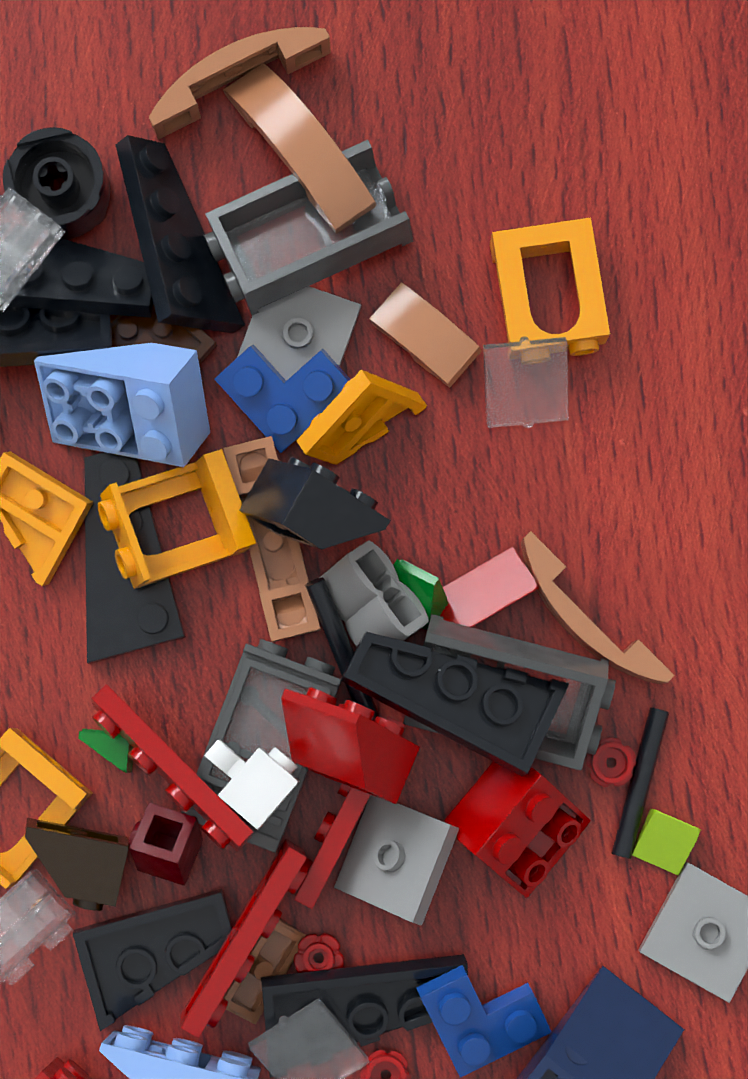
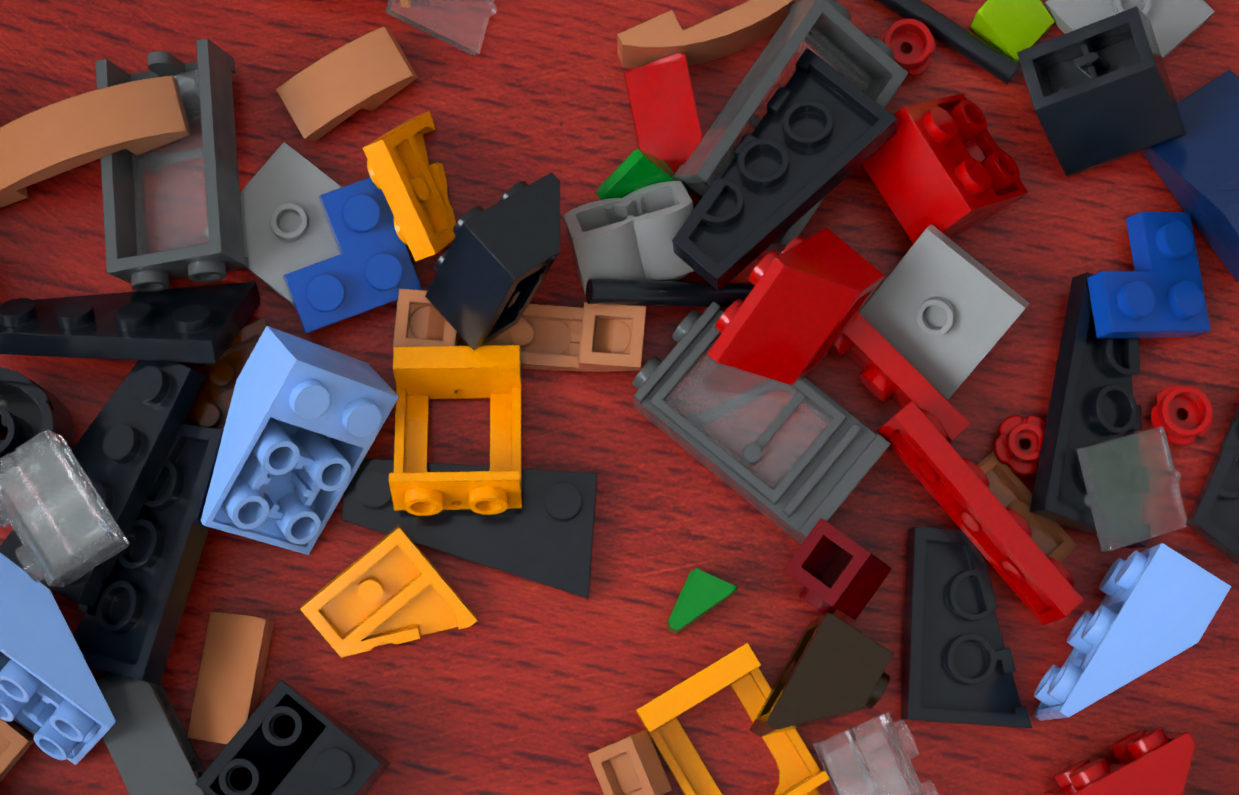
camera: 70 degrees left, 5 degrees down
(185, 785) = (780, 513): red plate -> none
(255, 785) = (807, 431): white brick -> none
(619, 931) = (1102, 91): none -> black slope

